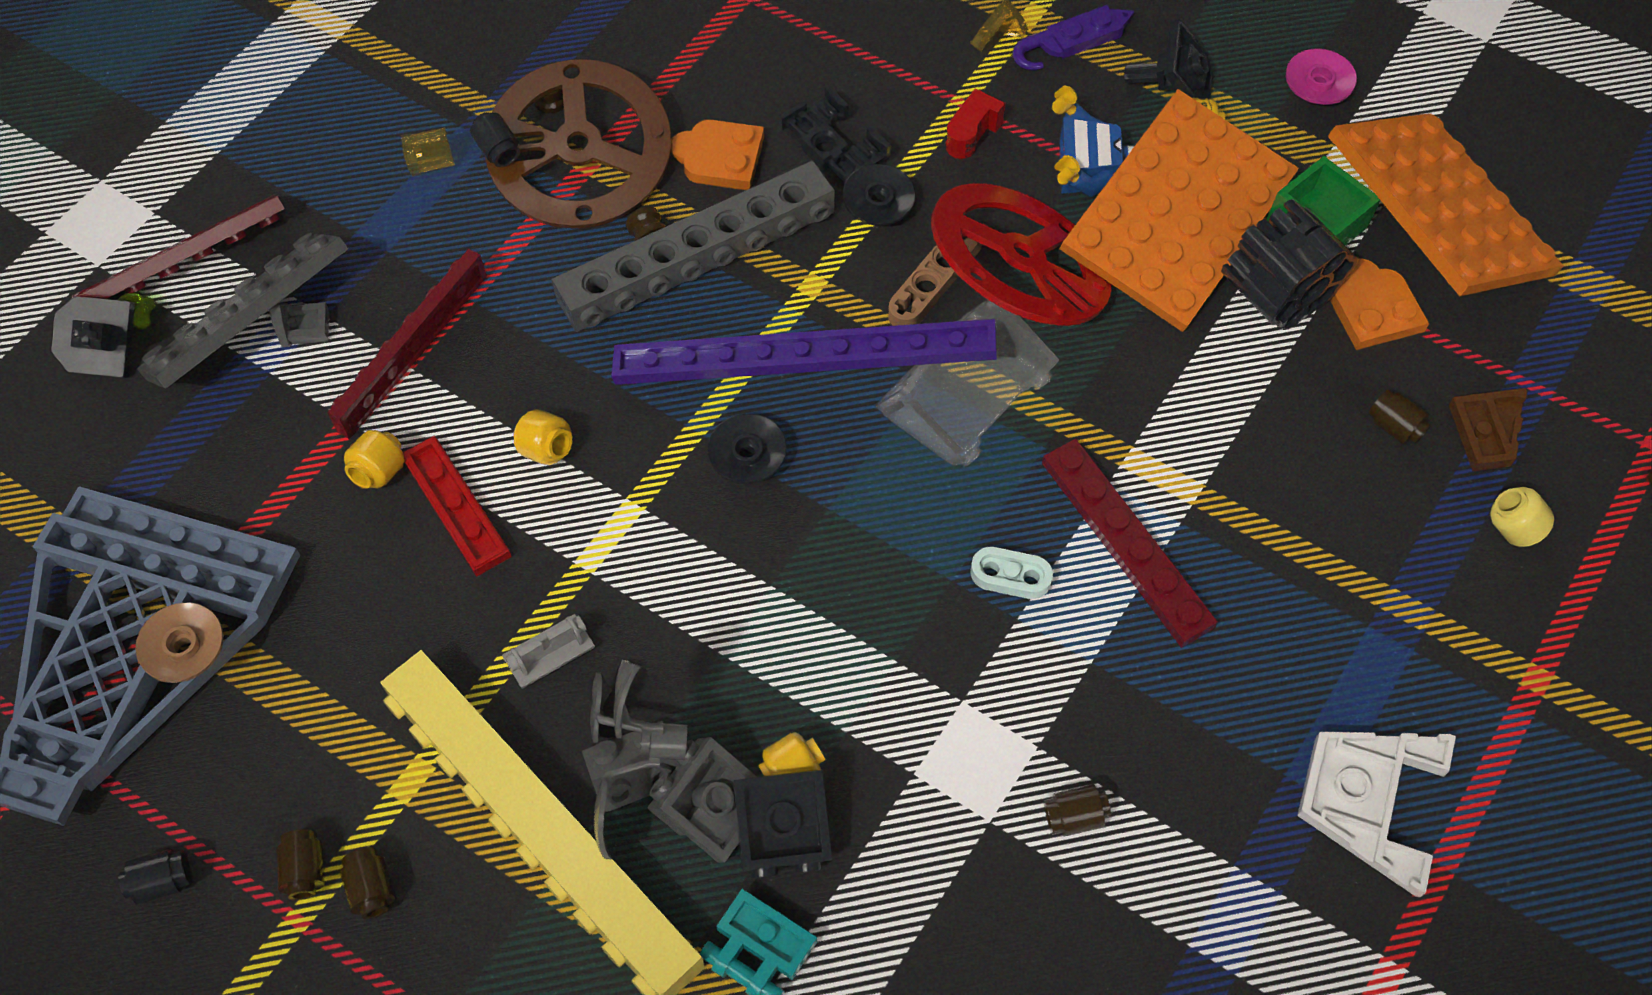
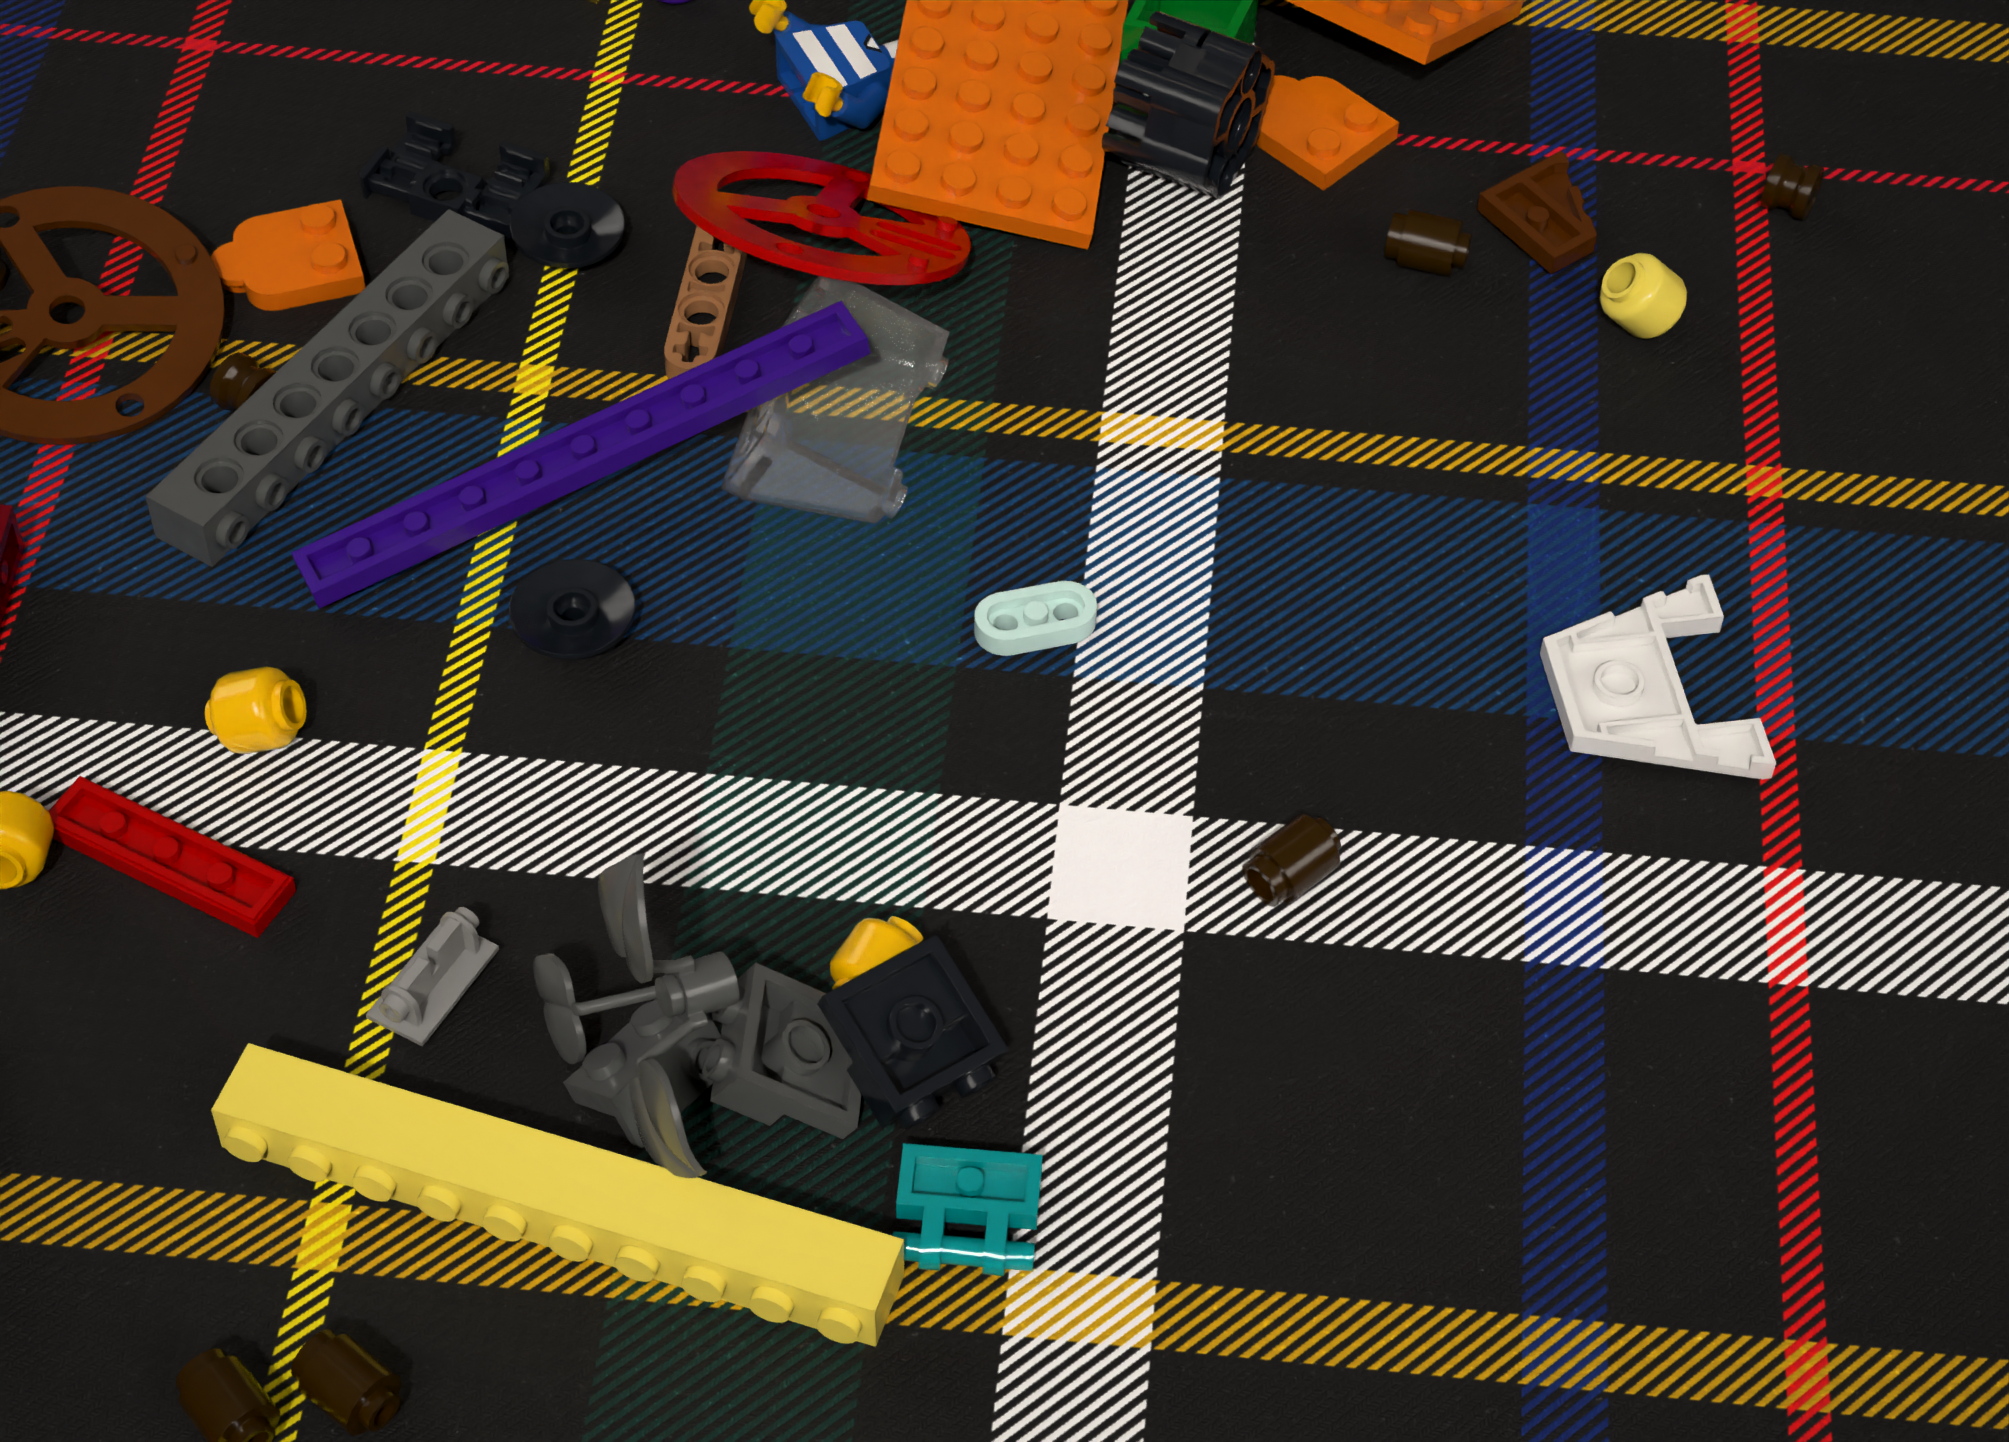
camera: 30 degrees left, 10 degrees down
(971, 121) = (645, 81): red leg -> none
(1129, 543) = (1166, 523): dark red plate -> none

